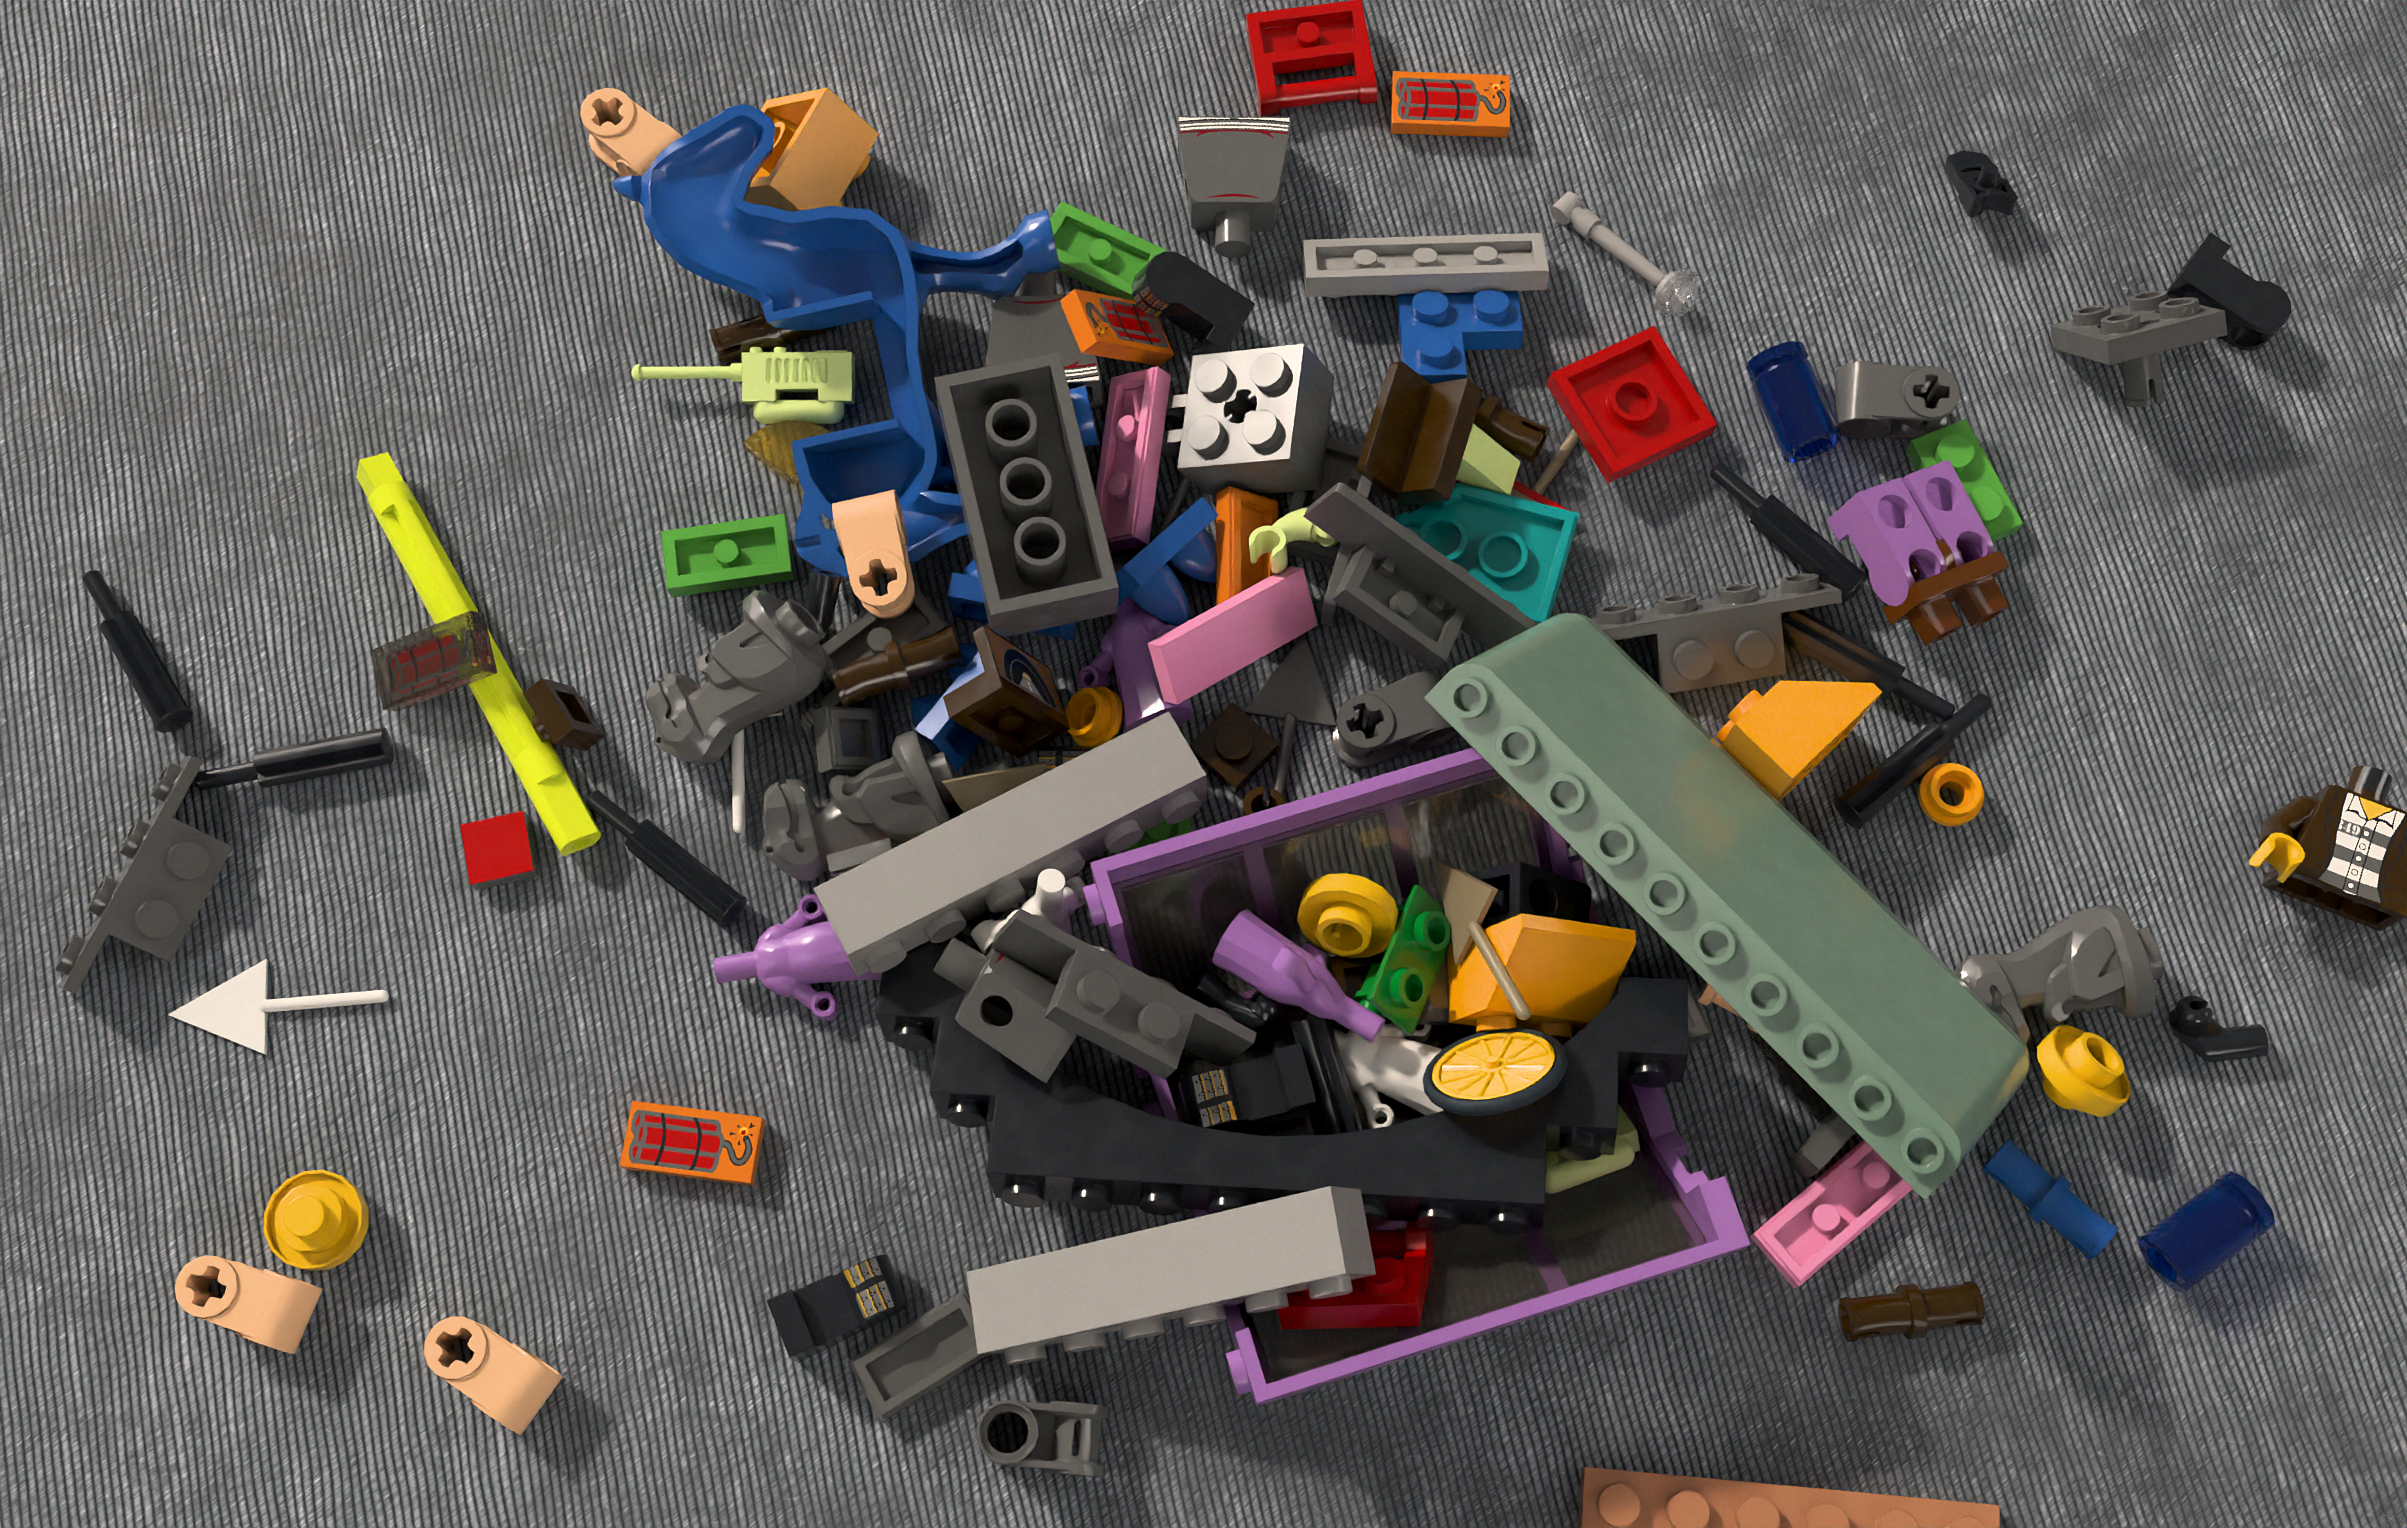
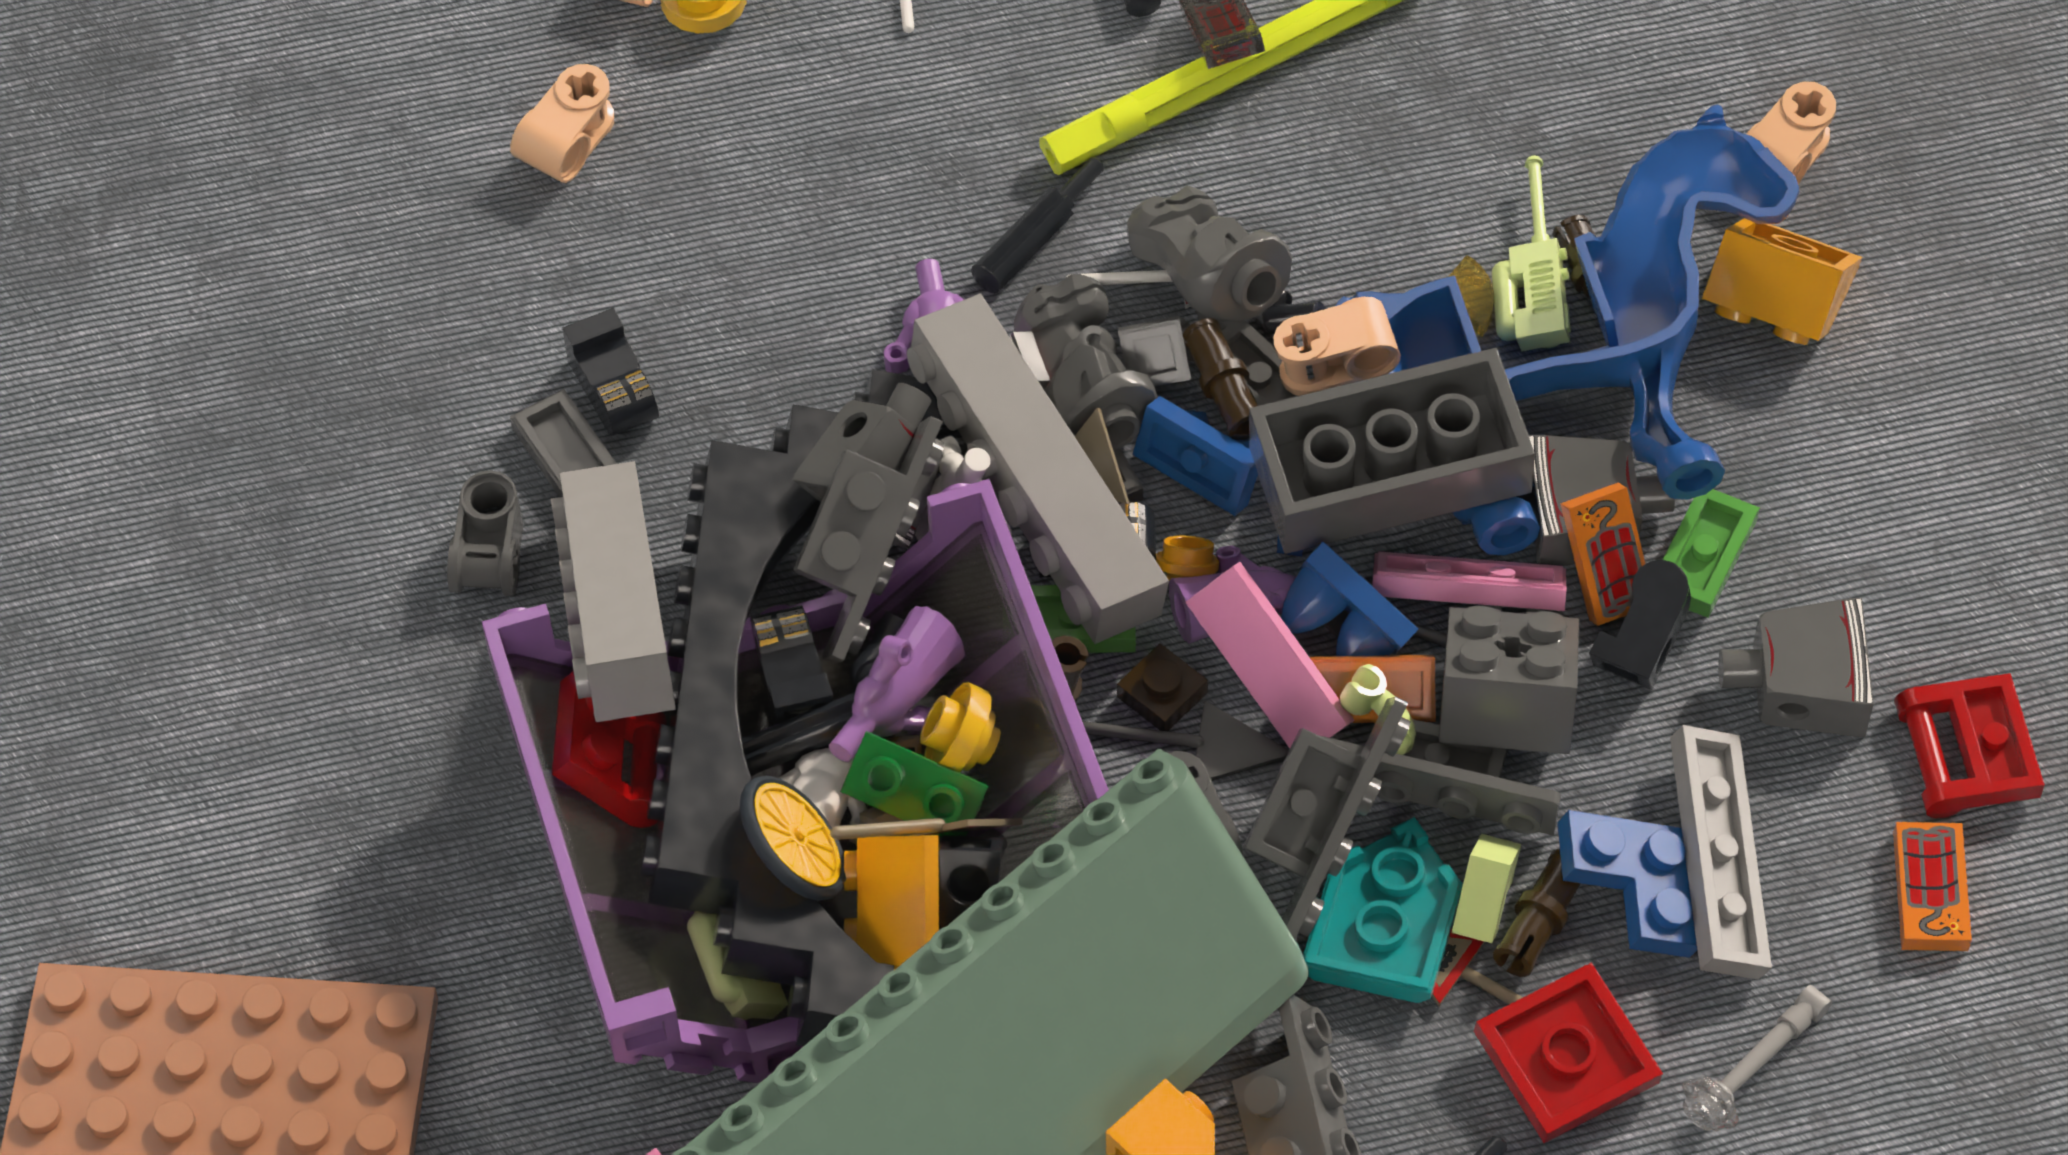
camera: 90 degrees right, 15 degrees down
(499, 850) = (1044, 98): red tile -> none
(562, 715) = (1173, 129): dark brown plate -> none
(692, 1143) = (767, 264): tile -> none
(727, 555) = (1344, 245): bright green plate -> none
(1011, 701) = (1197, 467): dark brown panel -> none
(1418, 435) = (1498, 812): dark brown panel -> none

